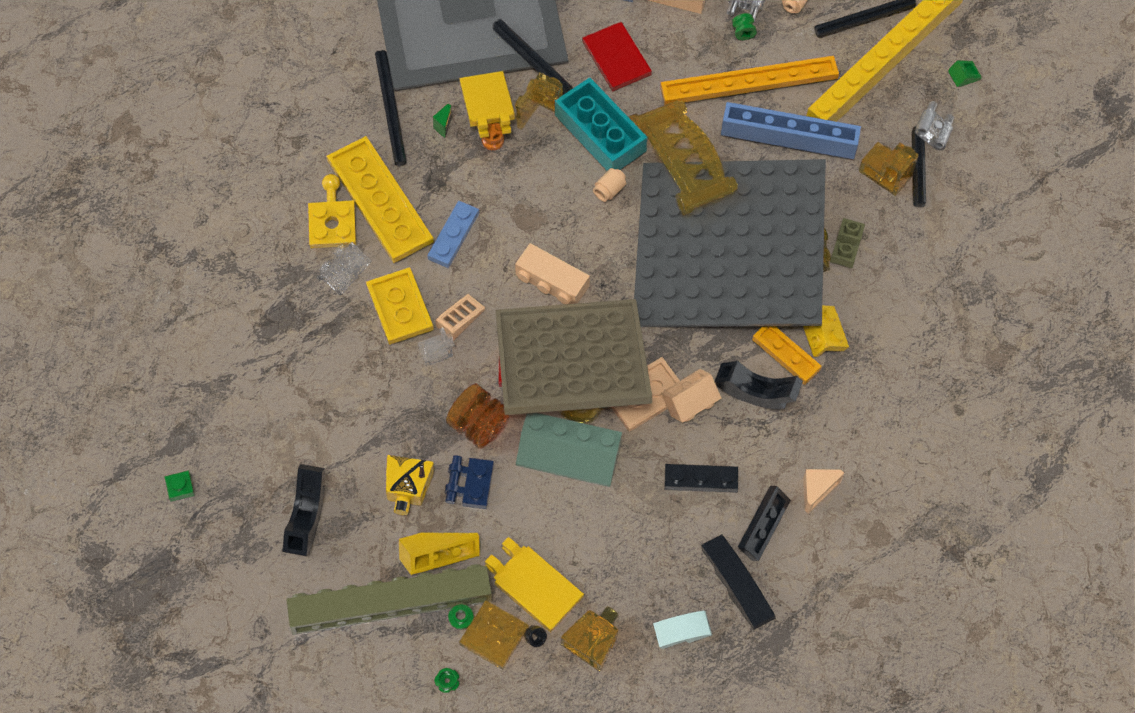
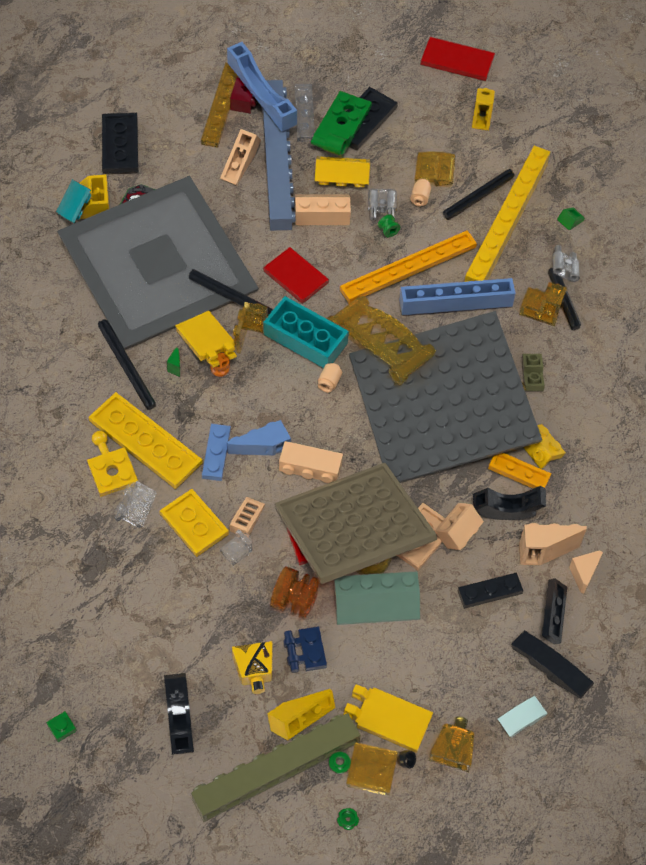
camera: 20 degrees left, 5 degrees down
(504, 235) = (261, 441): none -> medium blue slope
(784, 443) = (547, 542): none -> light nougat slope

